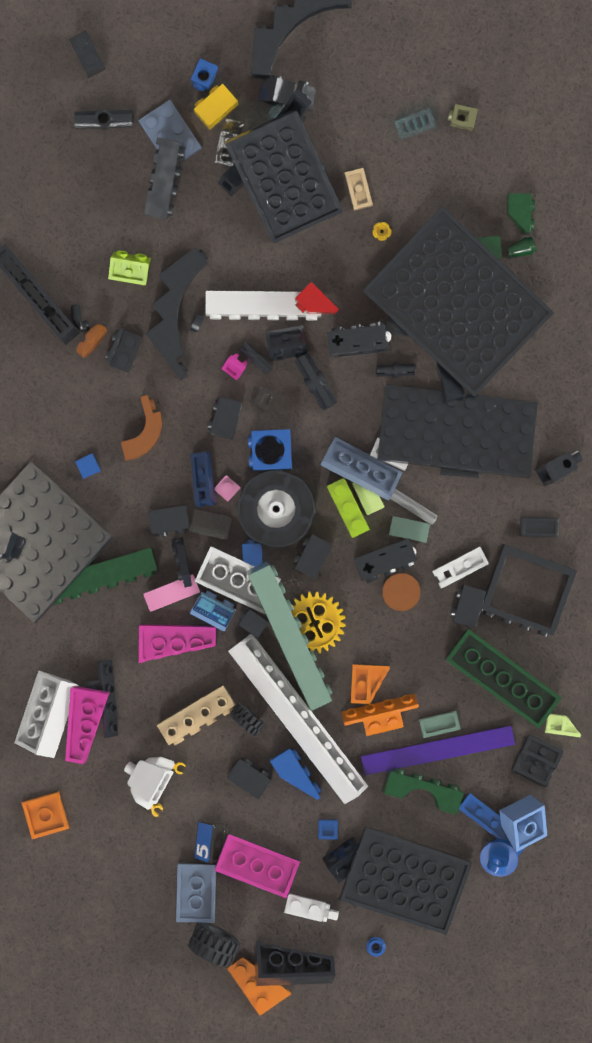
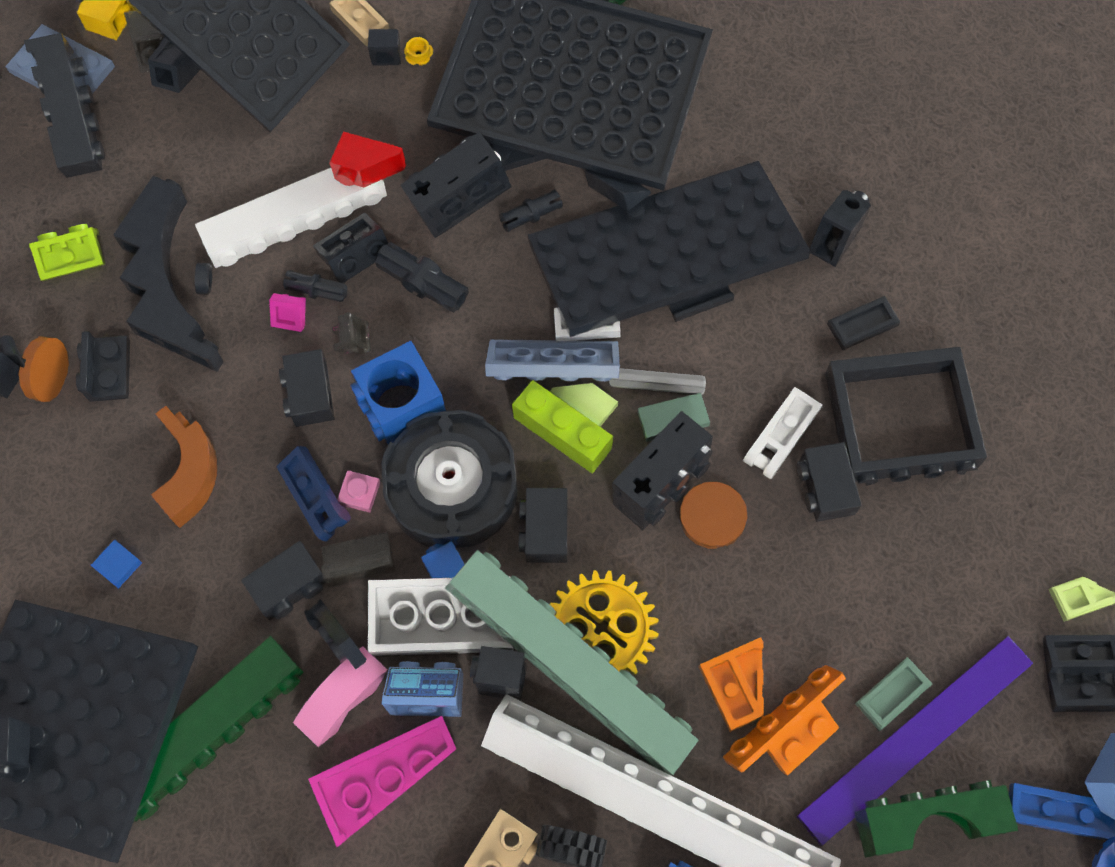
camera: 25 degrees left, 20 degrees down
(363, 220) = (384, 47): none -> black slope
(502, 678) = (952, 563): dark green brick -> none

